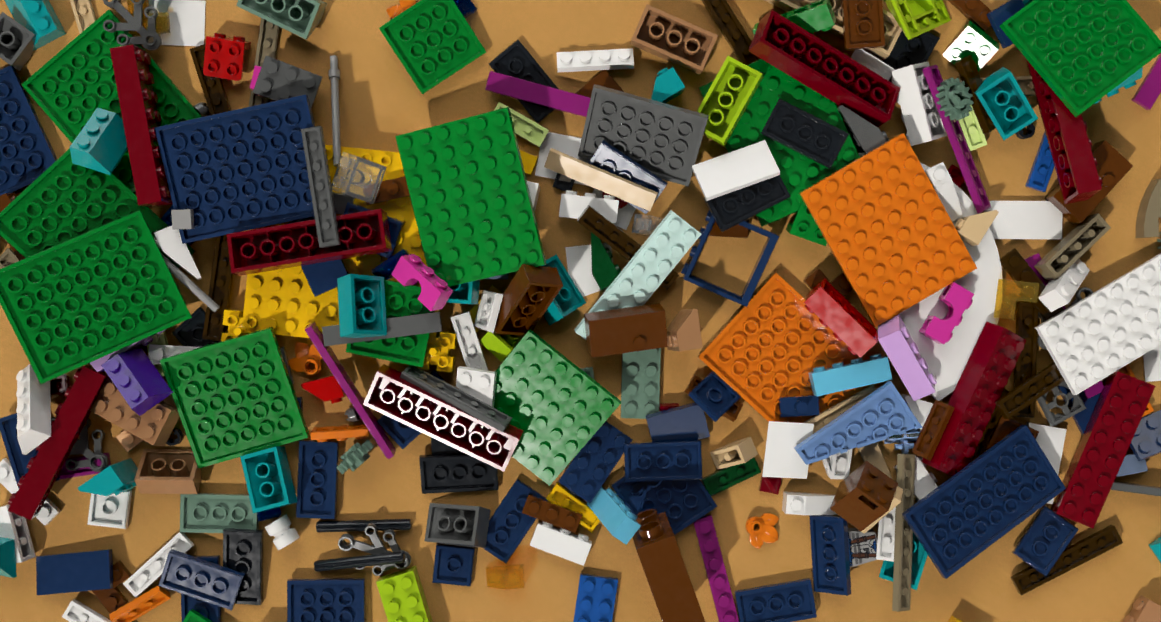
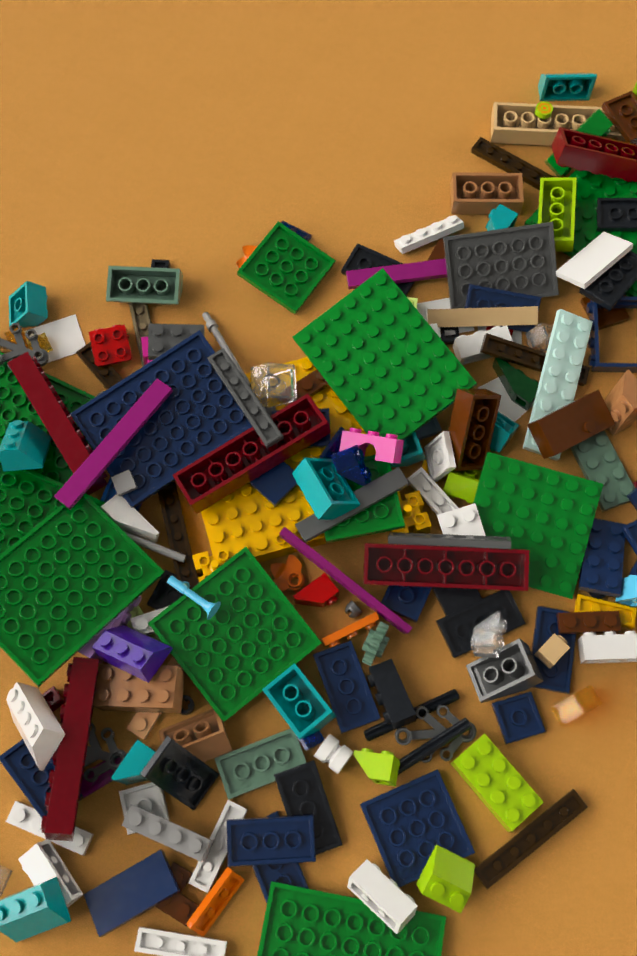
camera: 20 degrees left, 20 degrees down
(117, 541) = (167, 833): none -> light grey brick
(141, 501) = (179, 773): none -> black tile
(183, 180) = (113, 444): none -> magenta tile
(199, 339) = (184, 588): none -> medium azure piece
(312, 560) = (379, 767): none -> lime slope
(351, 504) = (391, 694): none -> black brick
(394, 294) = (350, 465): none -> clear blue slope
(455, 491) = (487, 636): none -> clear slope
(506, 525) = (552, 650): none -> tan brick

